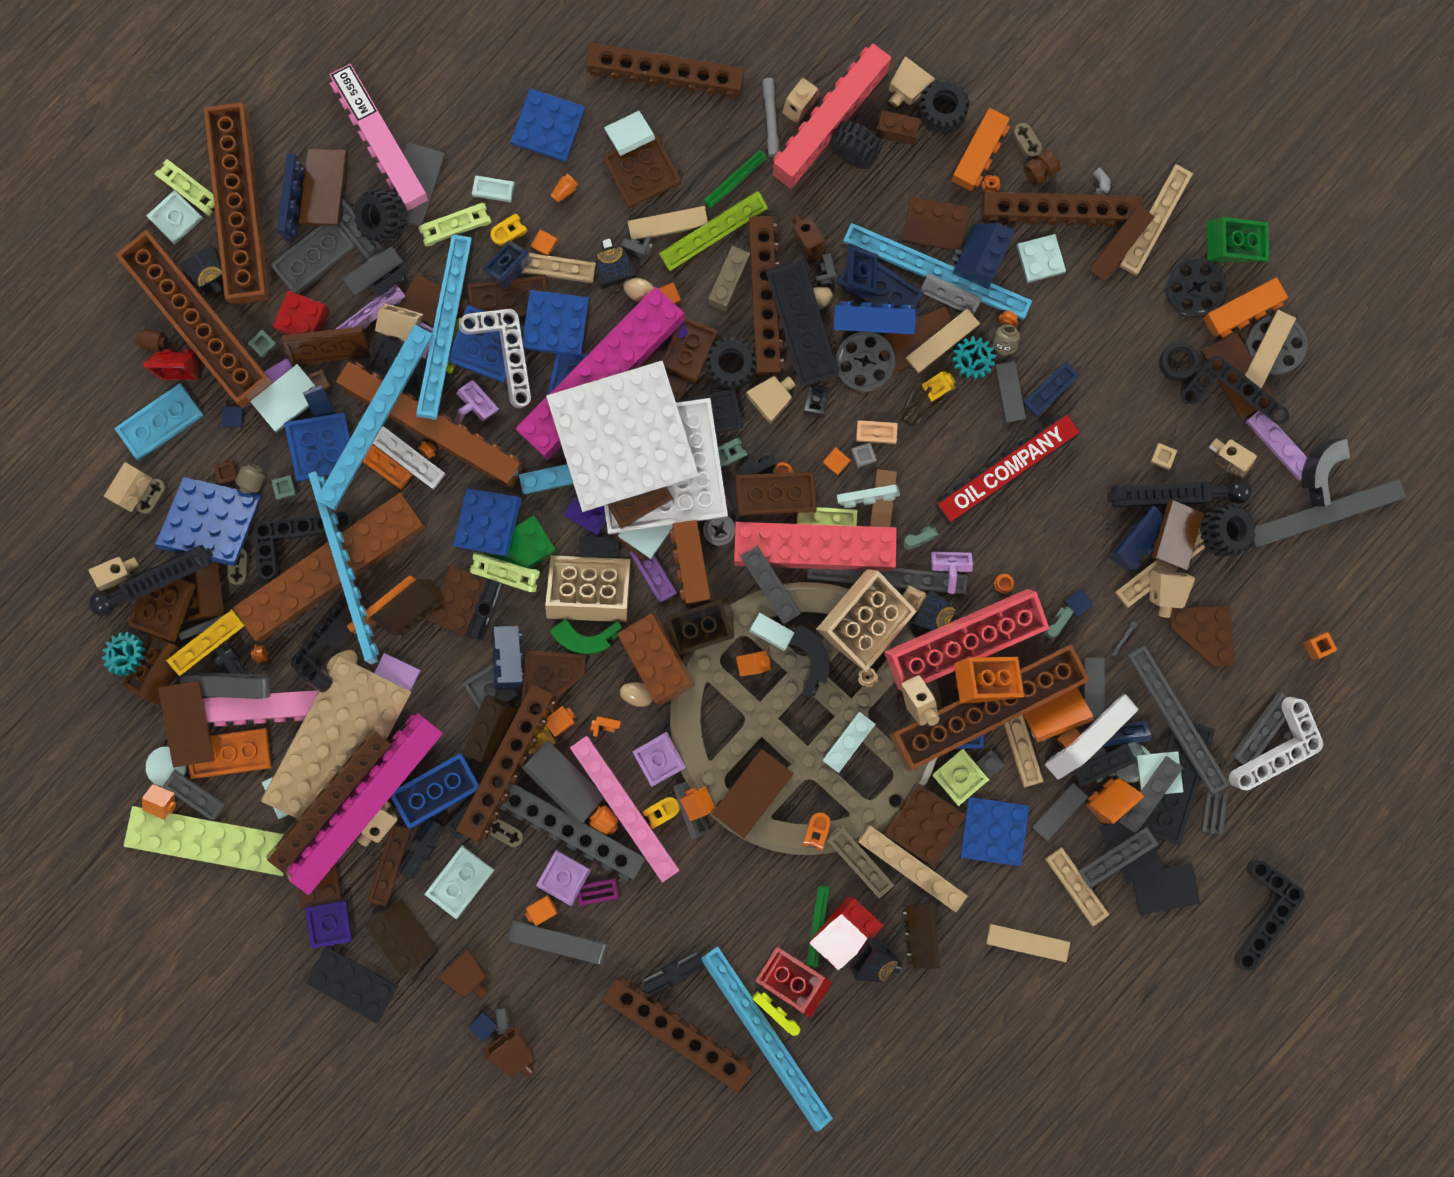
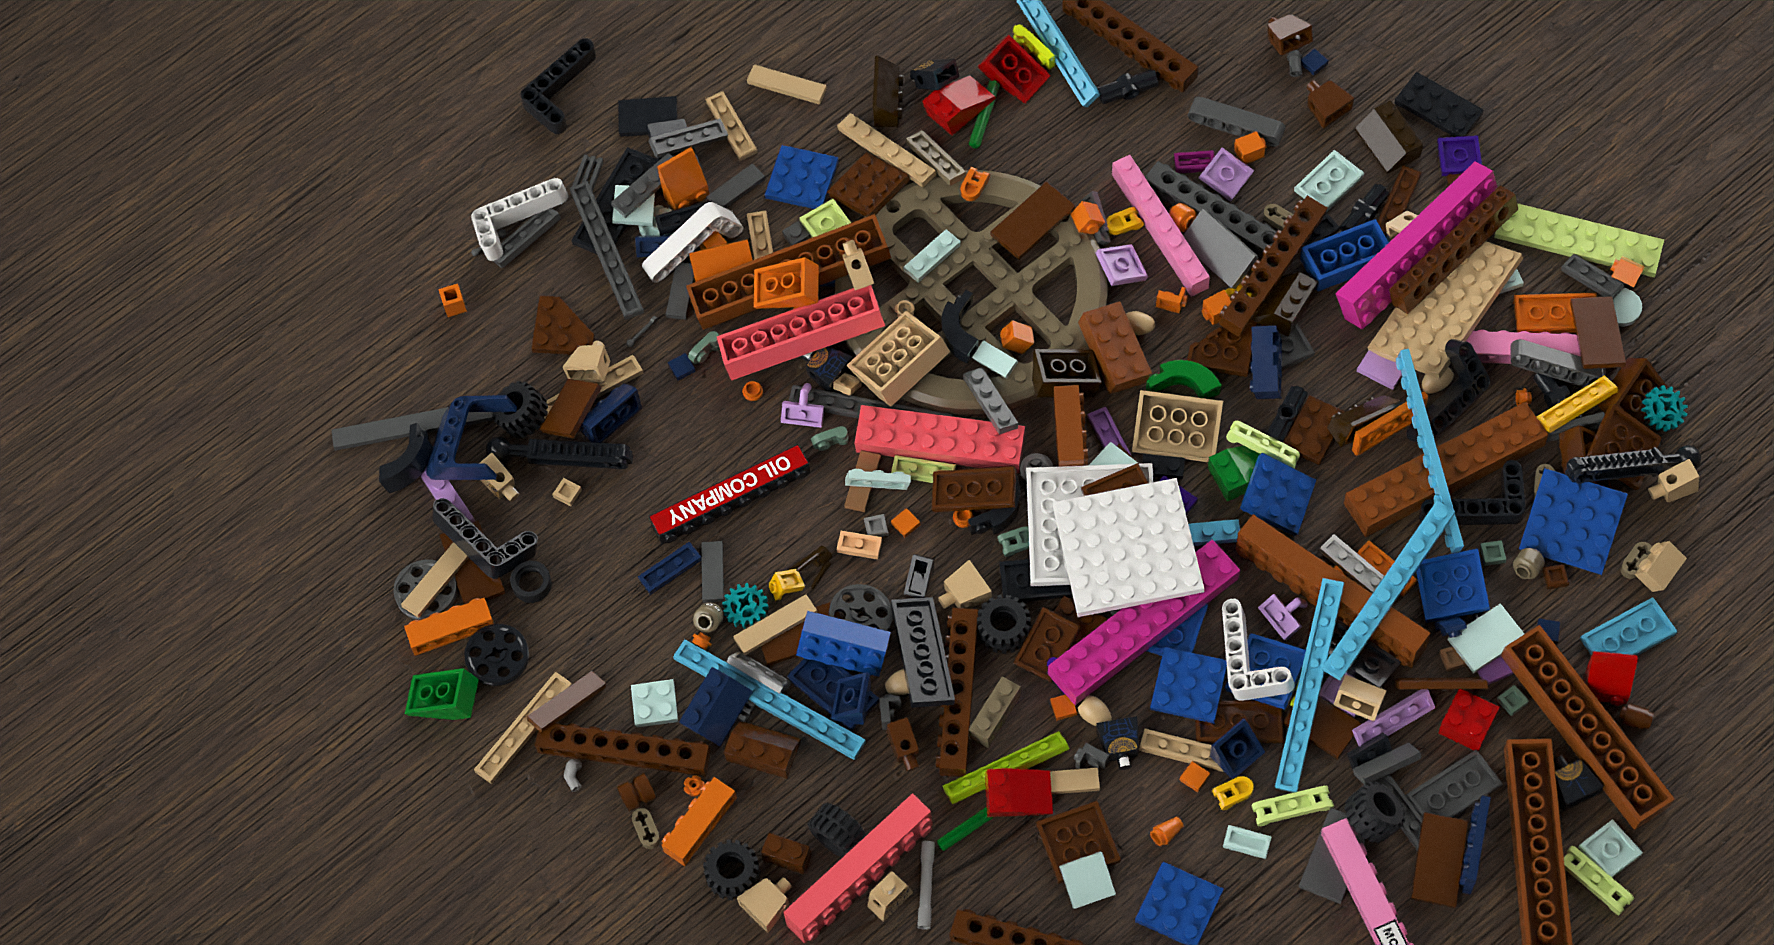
camera: 165 degrees left, 20 degrees down
(699, 201) = (1018, 792): none -> red slope
(1289, 486) = (442, 459): none -> dark blue windscreen

